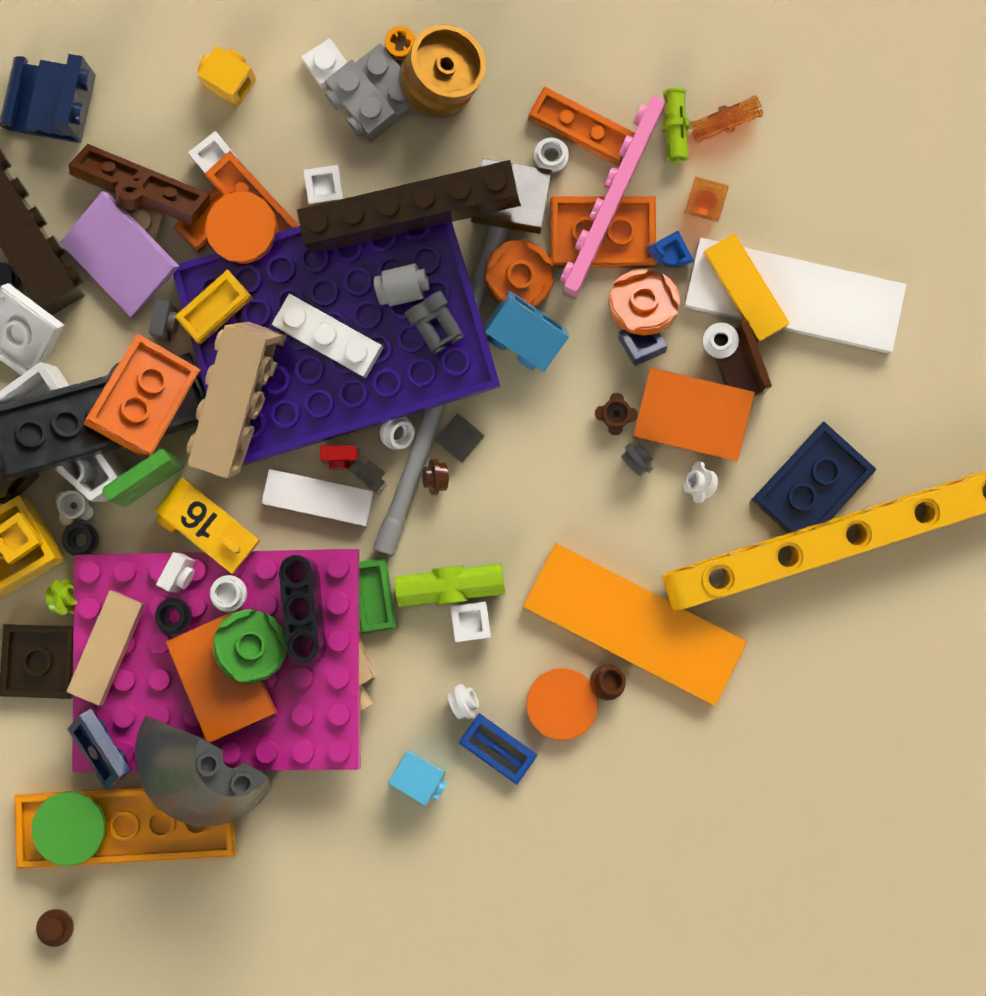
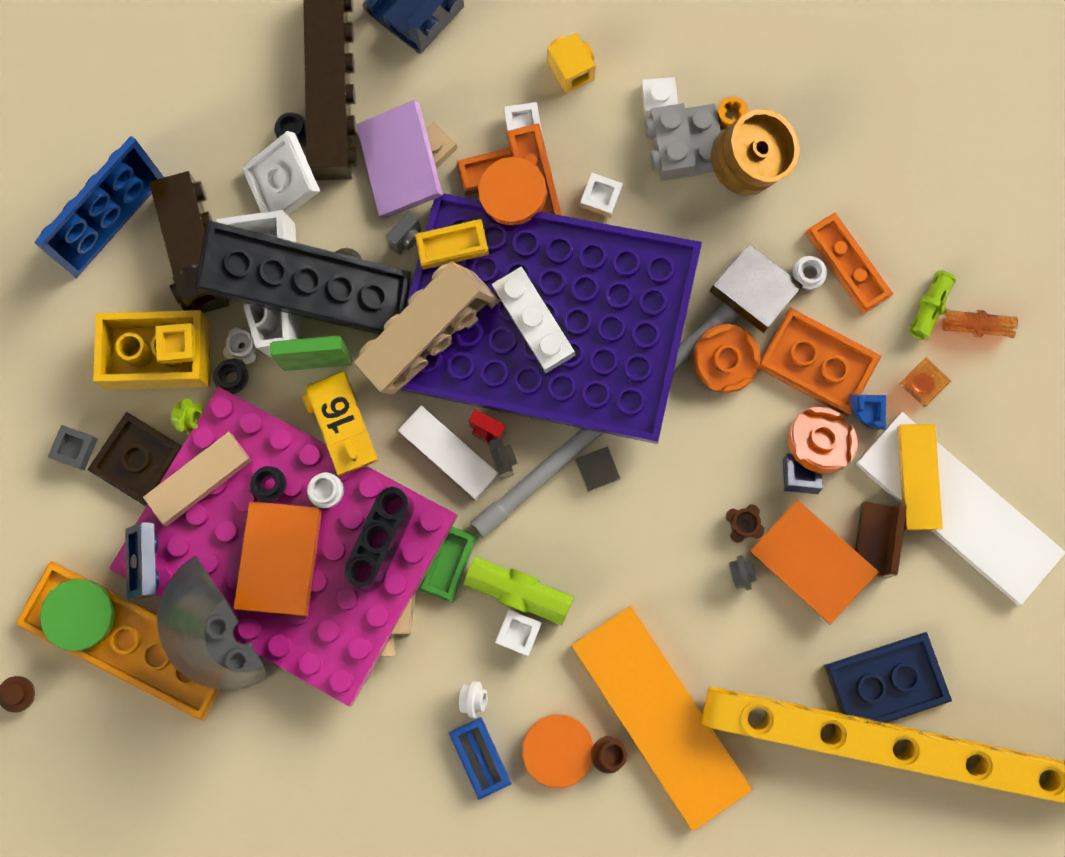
camera: 30 degrees right, 5 degrees down
(139, 185) = (447, 112): reddish brown hinge -> none
(142, 396) = (349, 285): orange tile -> none
(177, 573) = (292, 448): white plate -> none
(249, 646) = (316, 545): bright green tile -> none
(401, 285) = (620, 310): light grey brick -> none
(402, 437) = (549, 441): white plate -> none
(409, 207) = (664, 248): dark brown brick -> none
(418, 778) = (396, 744): medium azure brick -> none
(429, 310) = (631, 344): dark grey piece -> none
(435, 477) = (558, 490): reddish brown plate -> none
(525, 332) = (705, 409): dark azure brick -> none
(617, 182) = (831, 343): bright pink plate -> none
(700, 483) = (787, 625): white plate -> none
(720, 351) = (866, 519): white plate -> none

